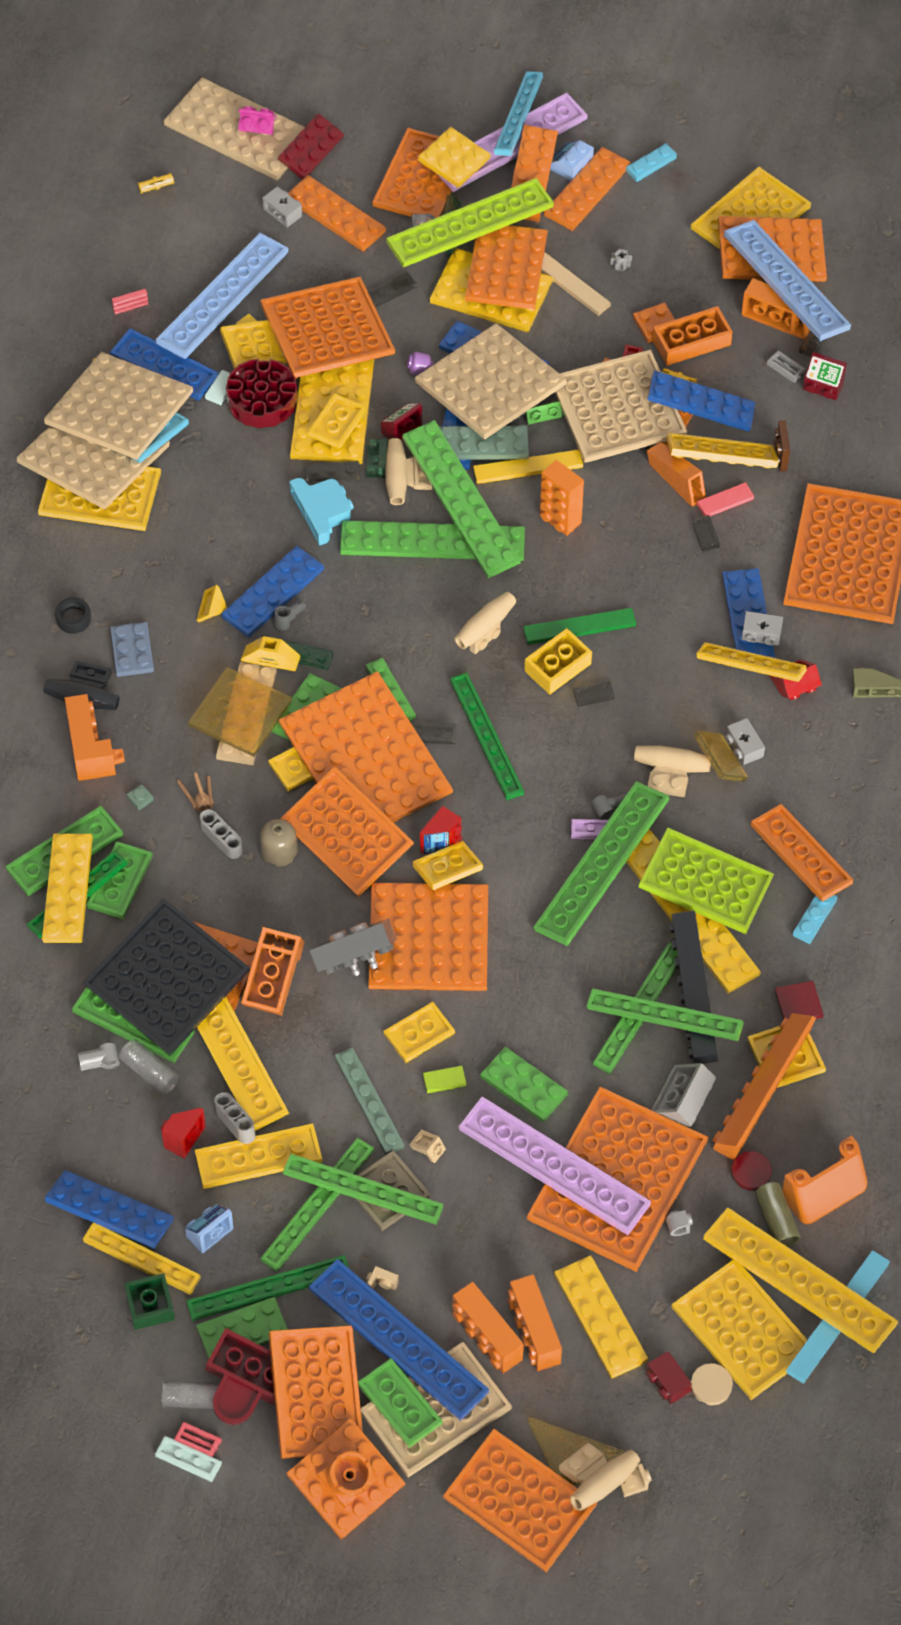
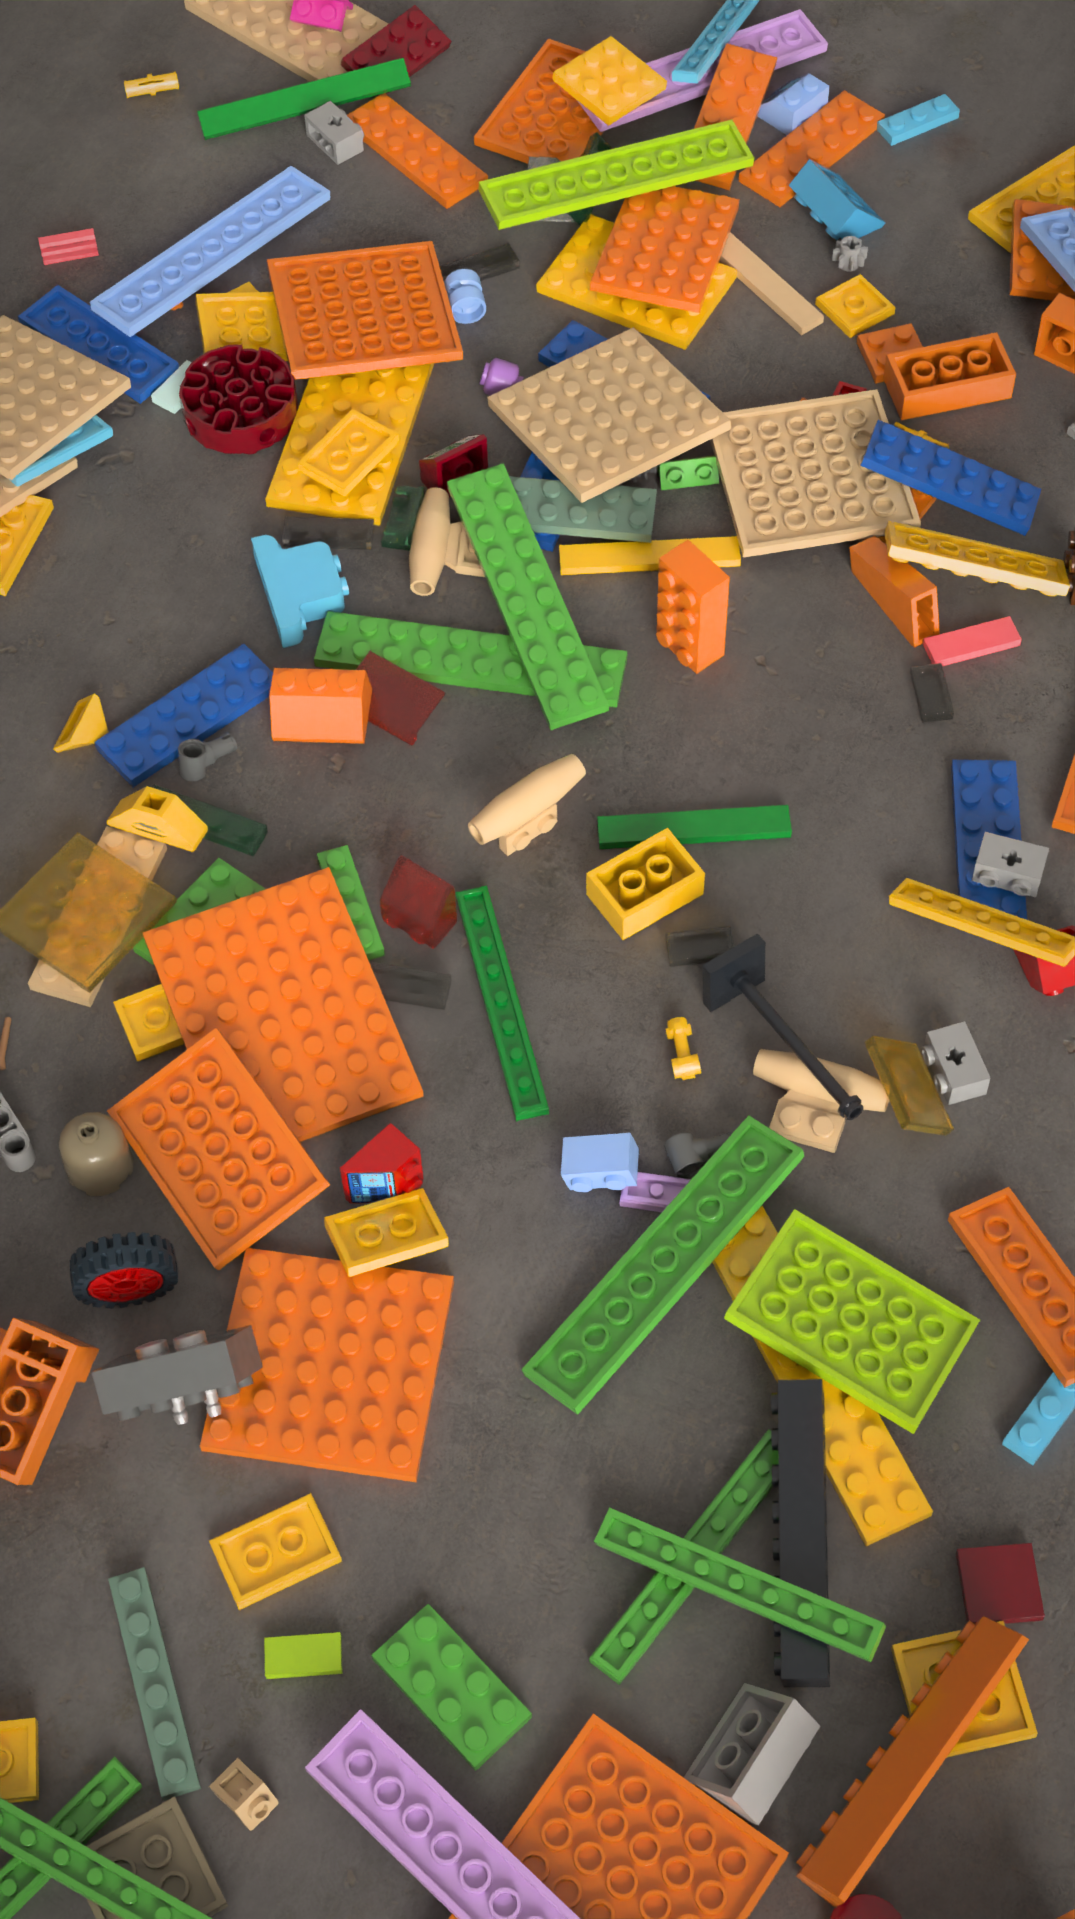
camera: 10 degrees right, 0 degrees up
(258, 185) = (303, 98): none -> green tile
(311, 899) = (123, 1270): none -> black wheel
(351, 578) = (319, 705): none -> slope
(388, 311) = (465, 296): none -> light blue wheel
(390, 569) = (398, 698): none -> clear red piece
(431, 686) = (418, 903): none -> clear red slope
(558, 815) = (599, 1162): none -> light blue brick
(596, 759) = (685, 1064): none -> yellow bar
(607, 226) = (834, 202): none -> dark azure slope
(619, 705) = (738, 973): none -> black tile
(628, 293) = (855, 306): none -> yellow tile

